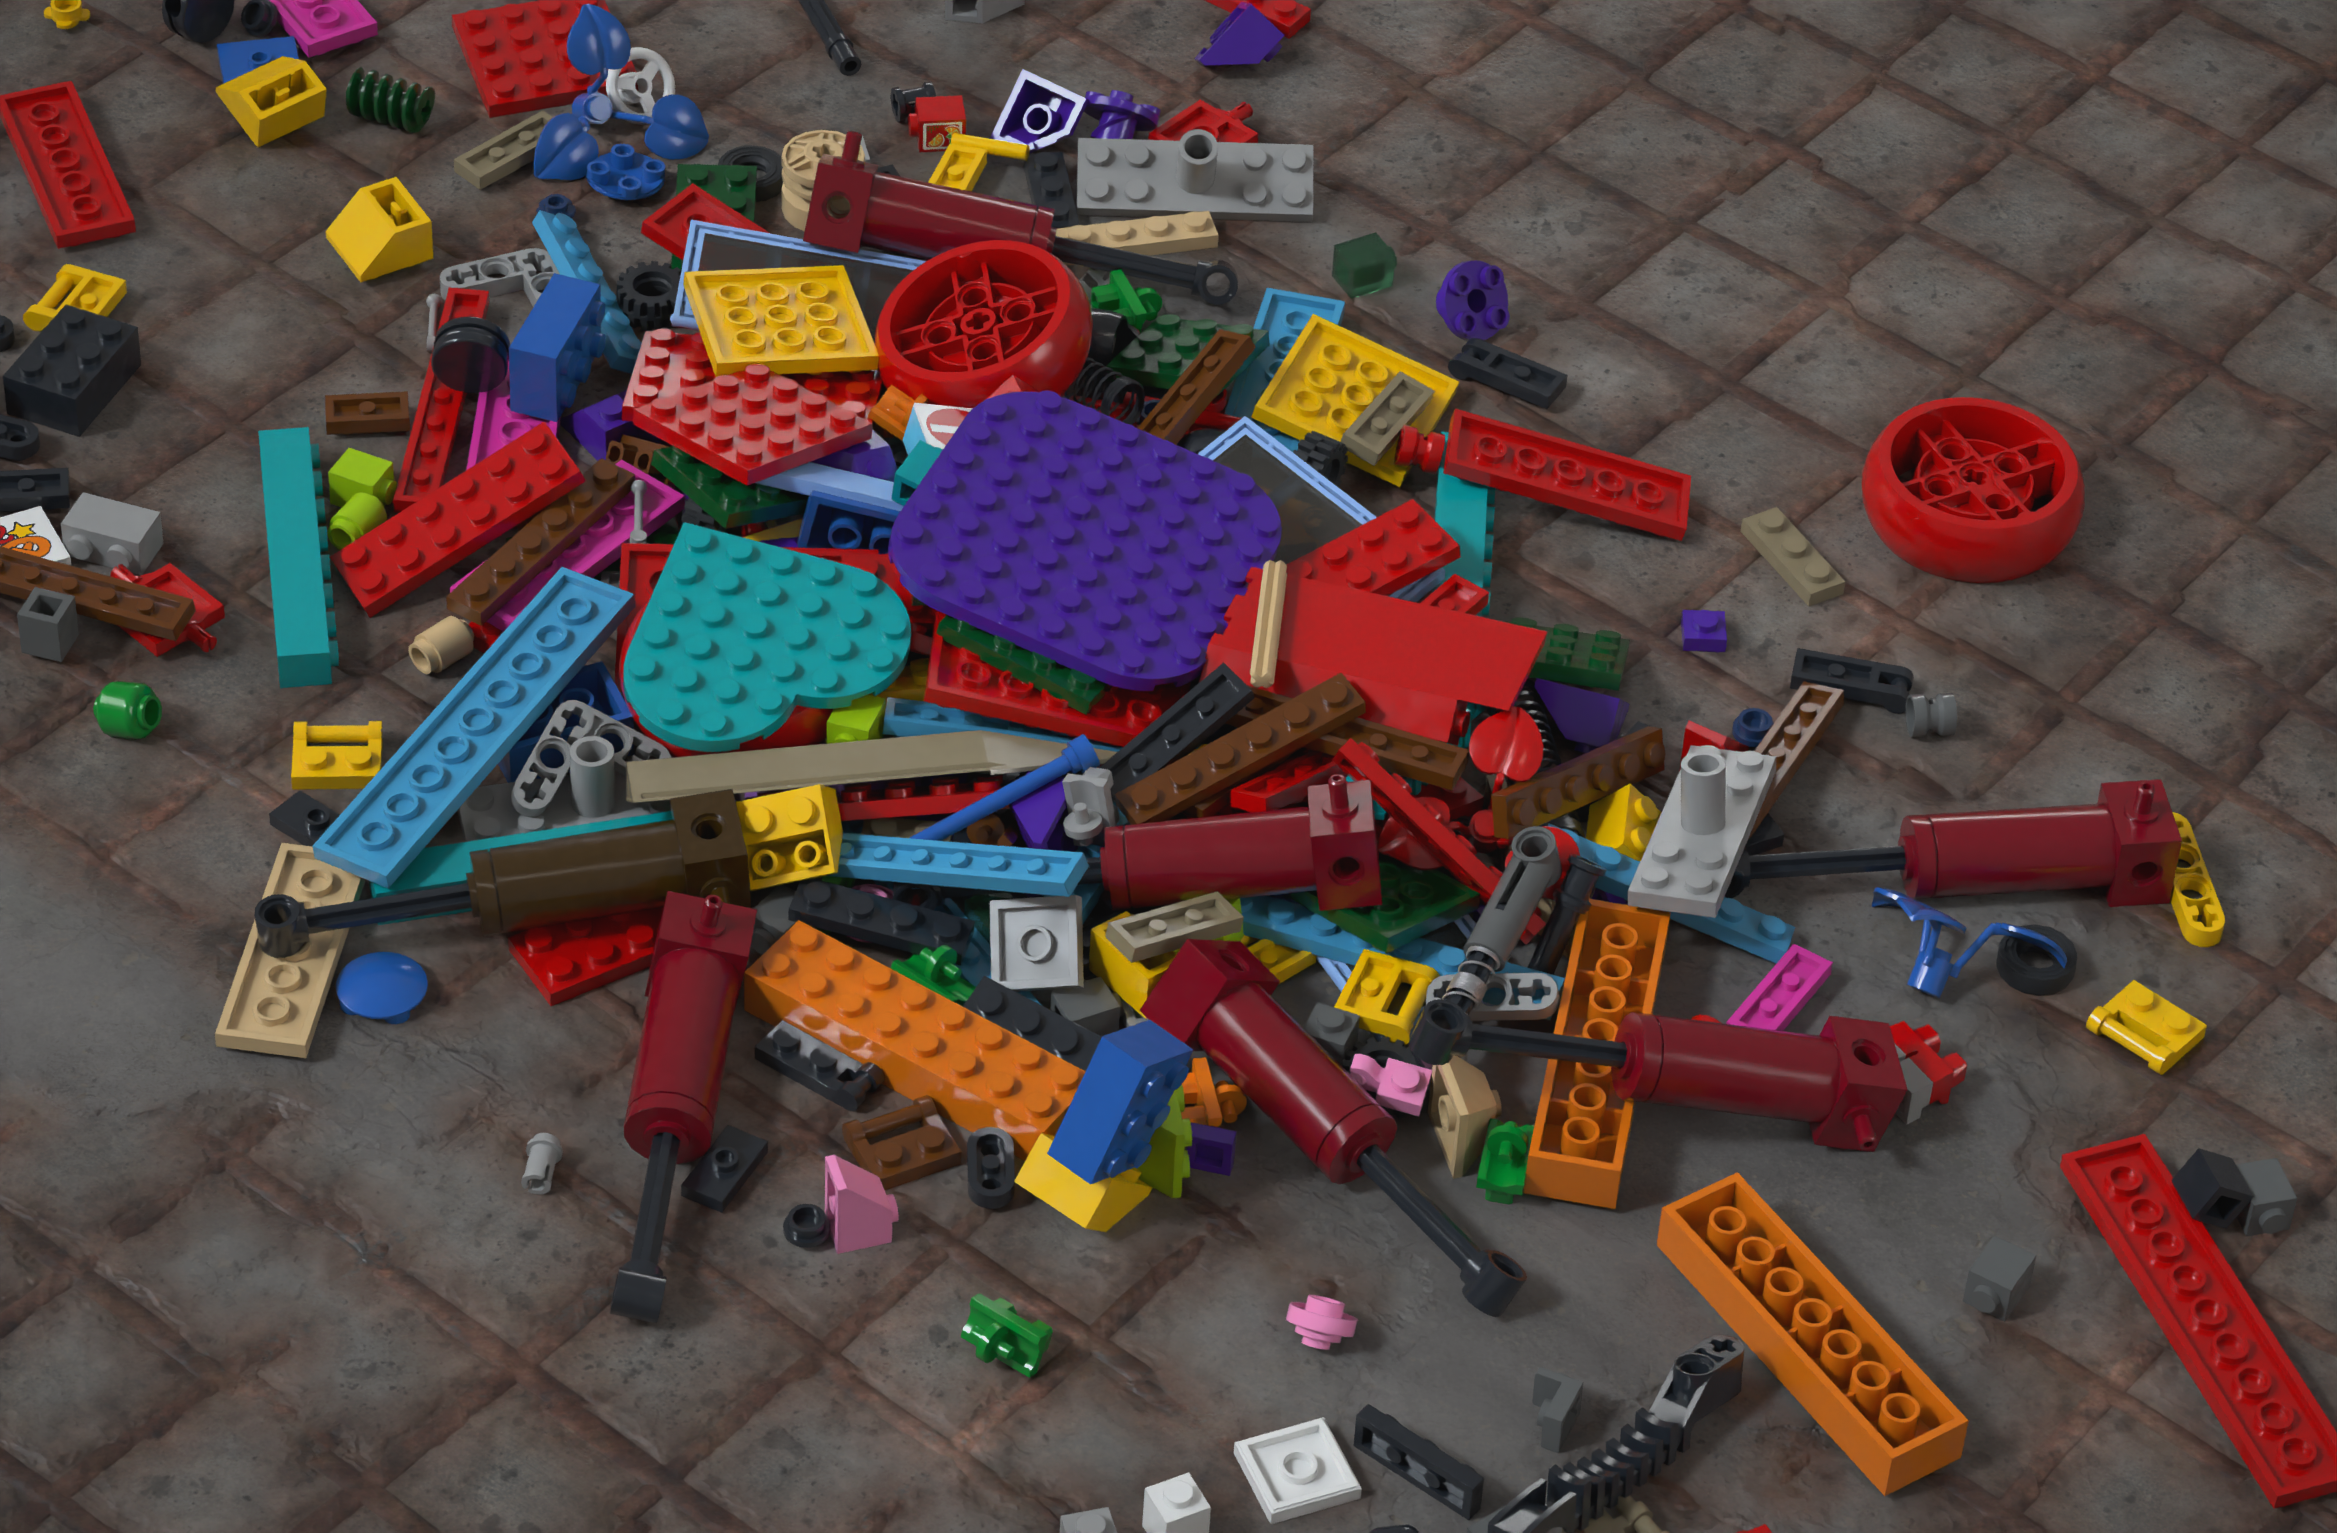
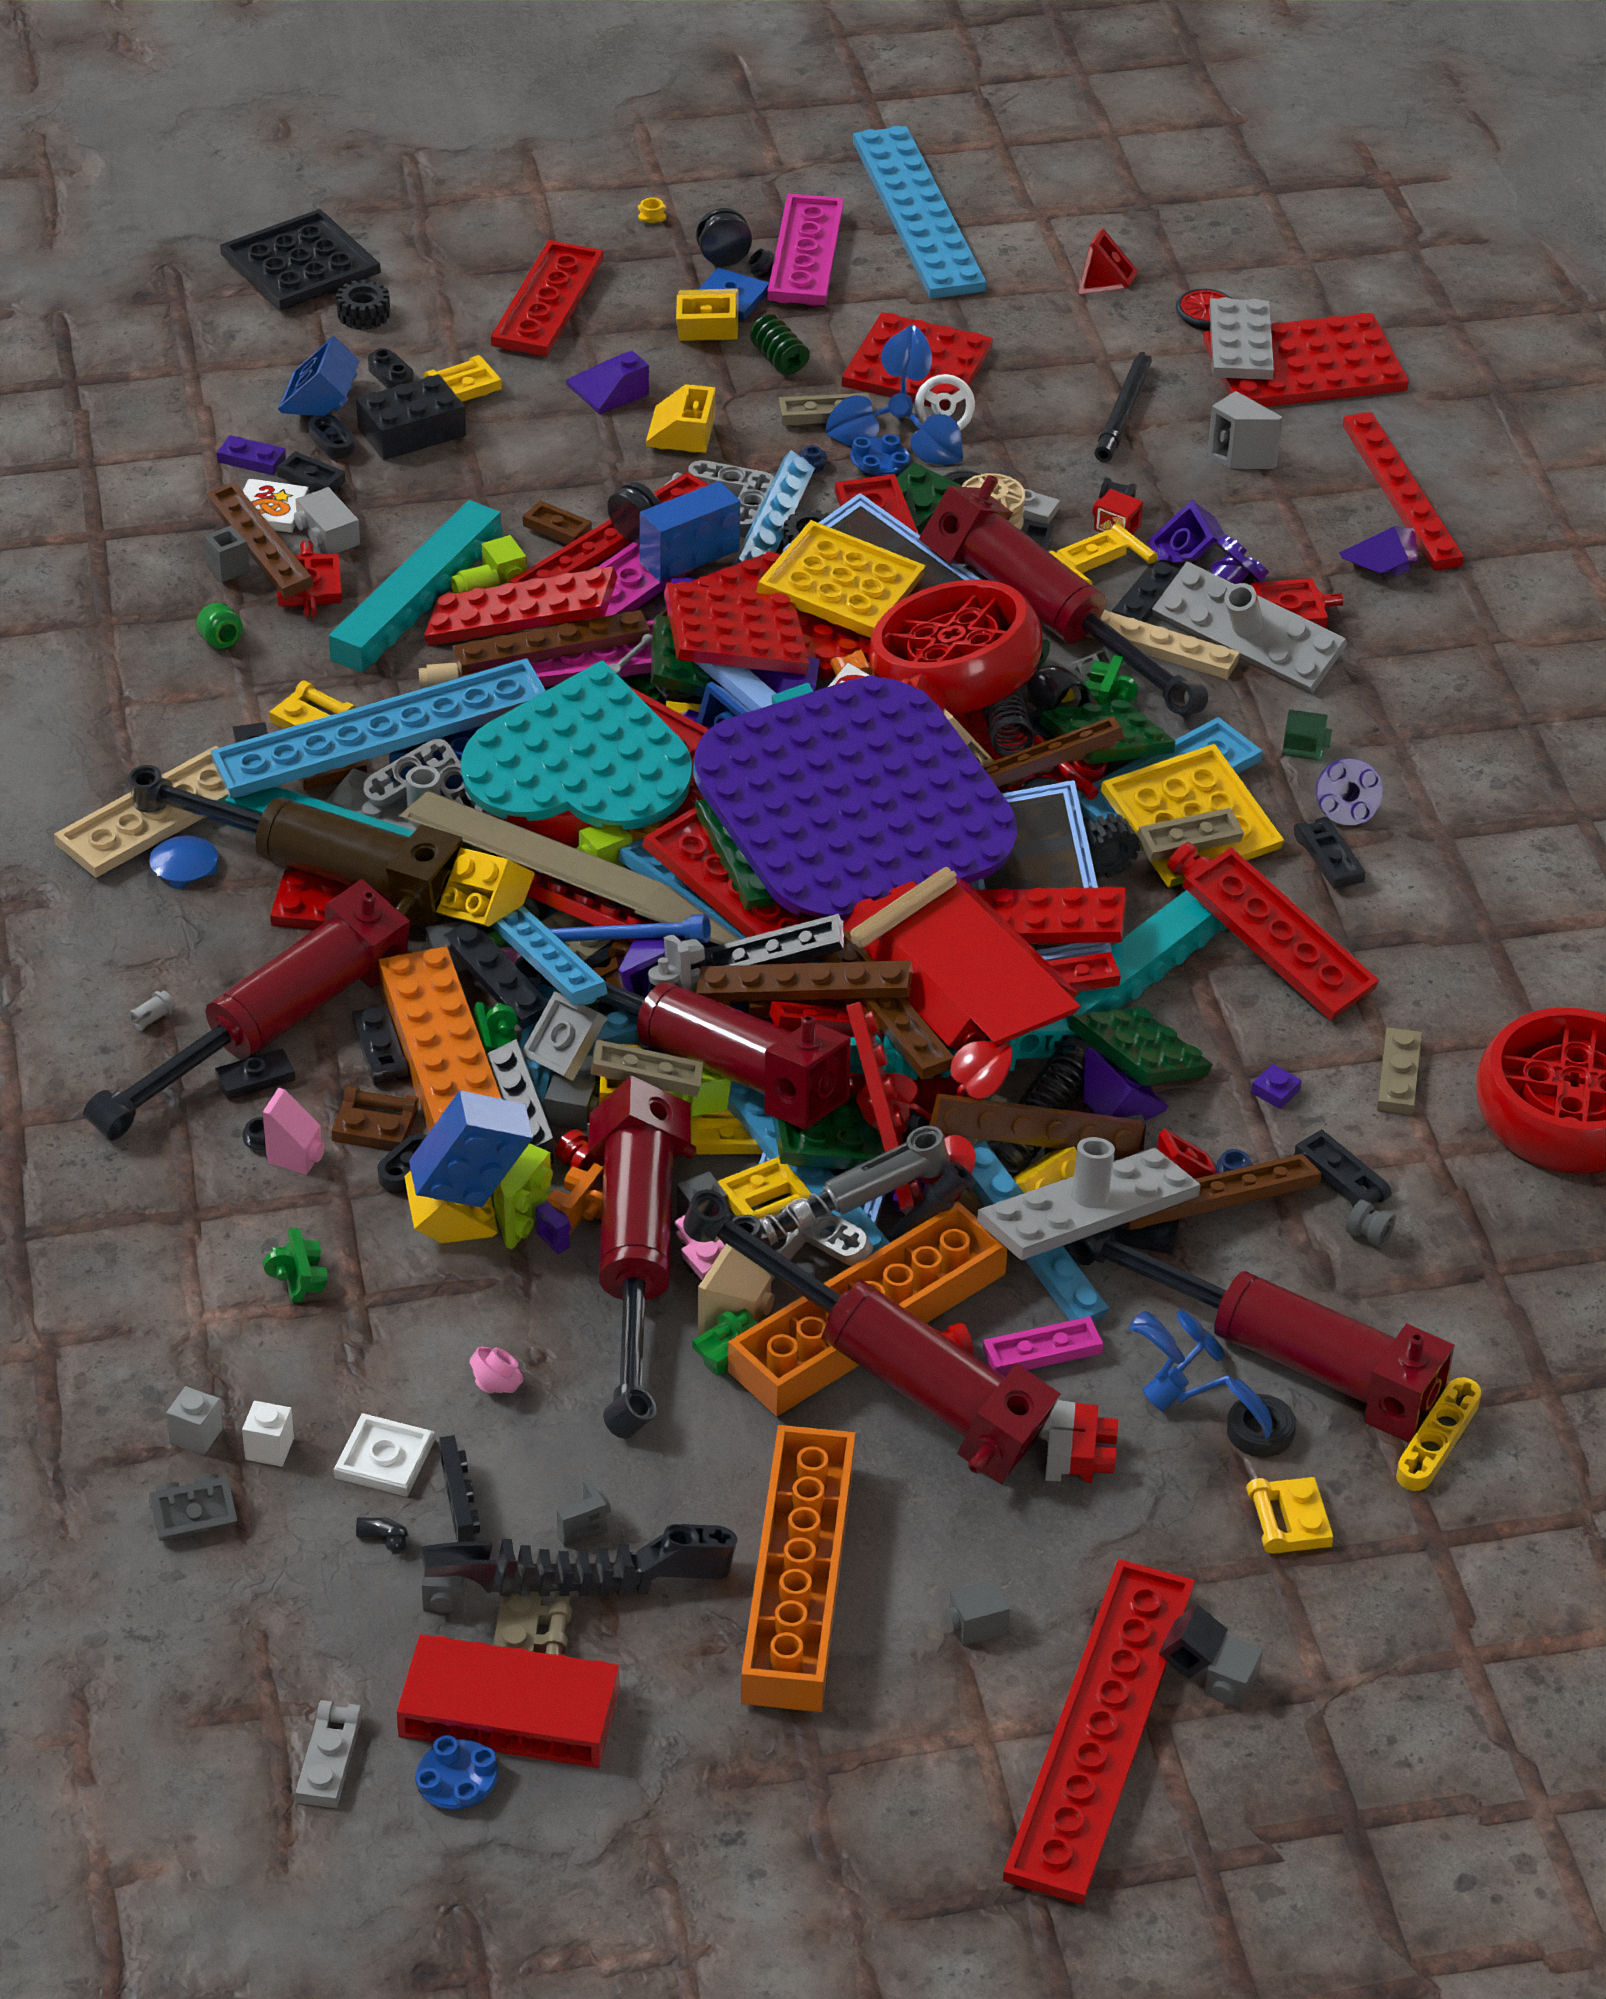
camera: 40 degrees right, 0 degrees up
(245, 225) = (612, 382): none -> dark purple slope

